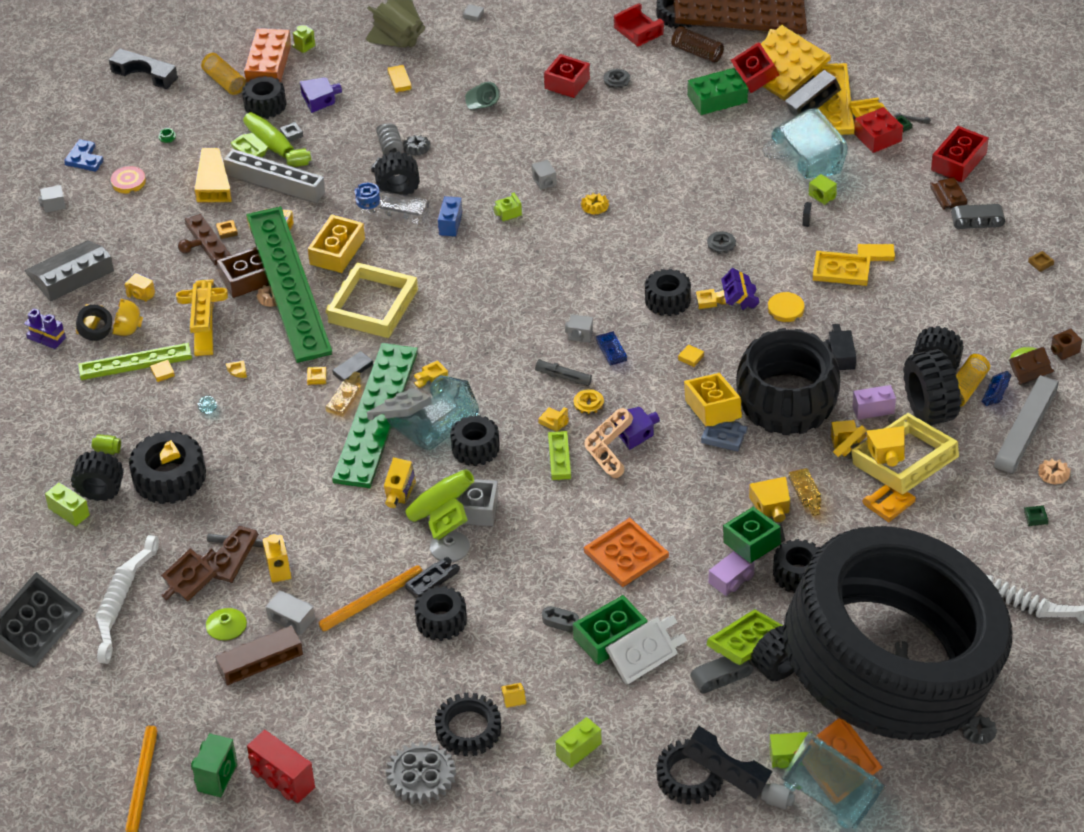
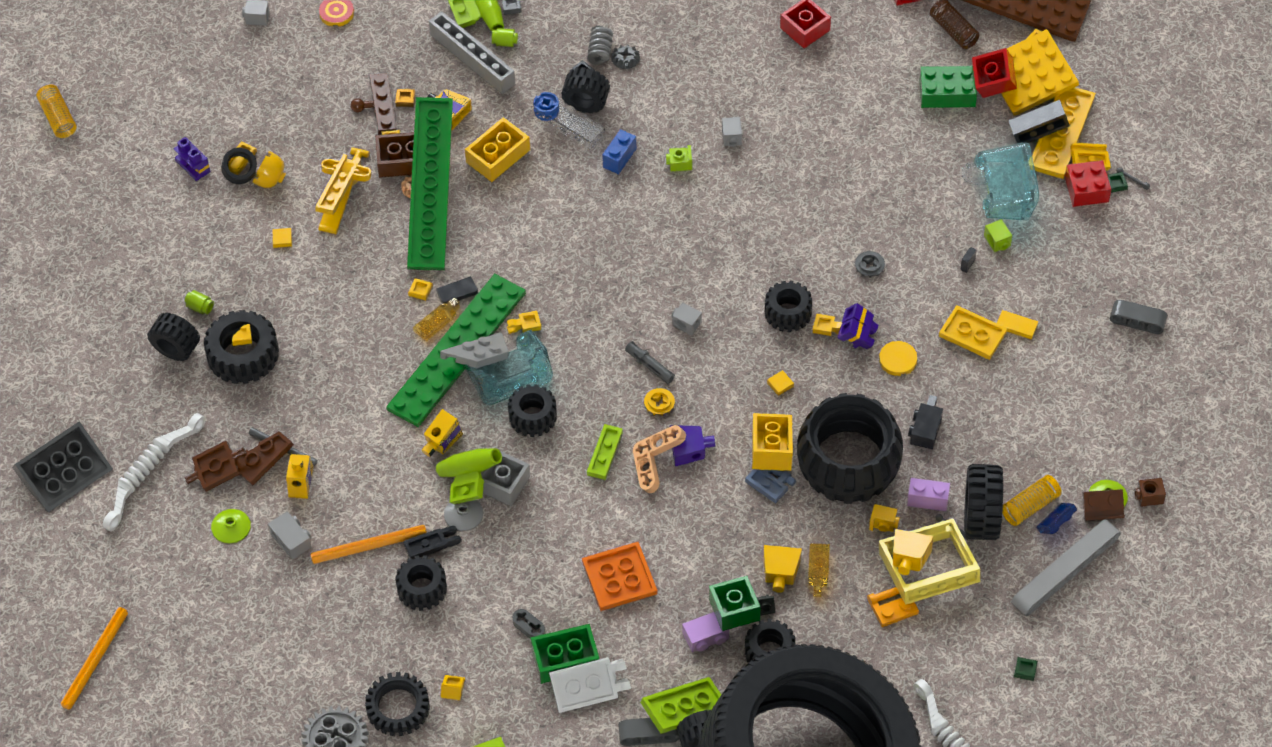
camera: 20 degrees right, 10 degrees up
(67, 504) = (138, 355): lime brick -> none
(71, 269) = (242, 97): dark grey slope -> none
(134, 361) = (261, 218): lime tile -> none
(140, 287) = (296, 140): yellow brick -> none
(207, 404) = (307, 284): clear light blue plate -> none
(212, 178) = (413, 35): yellow slope -> none
(214, 765) = (157, 668): green brick -> none
(237, 368) = (351, 257): yellow tile -> none
(259, 655) = (244, 569): brick -> none
(280, 766) = (212, 690): red brick -> none
(368, 324) = (523, 242): light yellow window -> none
(480, 96) = (711, 19): sand green cap -> none
(554, 419) = (618, 410): yellow bracket -> none
(597, 208) = (767, 186): yellow gear -> none
(611, 348) = (707, 350): clear blue plate -> none
(621, 75) = (862, 34): dark grey gear -> none
(845, 447) = (875, 535): yellow plate -> none
(942, 340) = (1017, 459): black tyre -> none
(948, 193) = (1124, 279): reddish brown plate -> none
(959, 153) = (1155, 238): red brick -> none
(1041, 261) = (1177, 388): pearl gold tile -> none
(1059, 476) = (1067, 635): light nougat gear -> none

